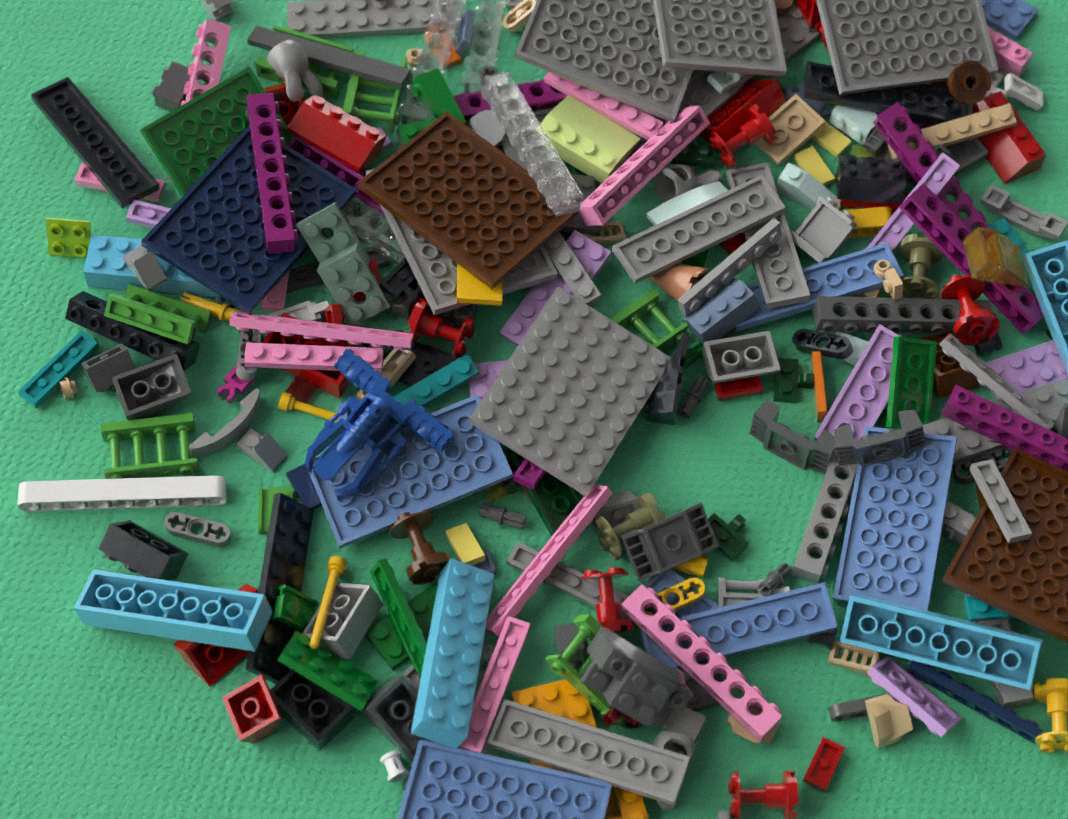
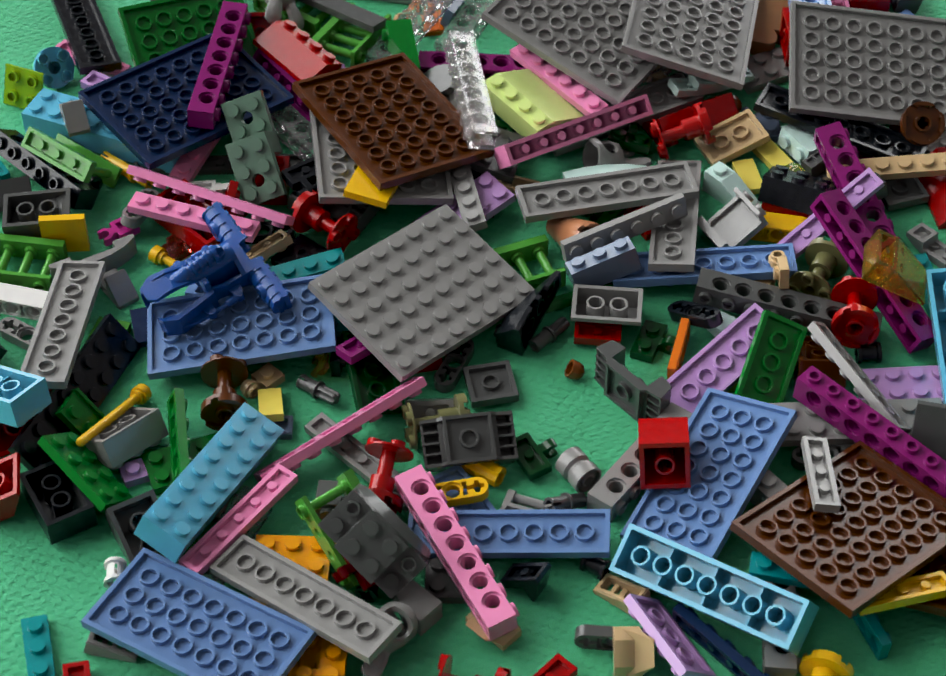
camera: 20 degrees right, 15 degrees down
(89, 203) = (56, 66): none -> medium azure plate
(194, 400) = (66, 227): none -> yellow tile
(238, 514) = (63, 321): none -> light grey plate
(366, 653) = (134, 473): none -> lavender plate
(445, 516) = (264, 378): none -> tan plate
(622, 462) = (454, 373): none -> dark grey beam
(659, 467) = (490, 384): none -> dark grey plate
(729, 431) = (574, 370): none -> dark orange hinge
(768, 666) = (529, 576): none -> black slope
(774, 541) = (577, 469): none -> light grey wheel
(852, 509) = (664, 453): none -> red slope
(880, 447) = (712, 398): dark grey plate -> none

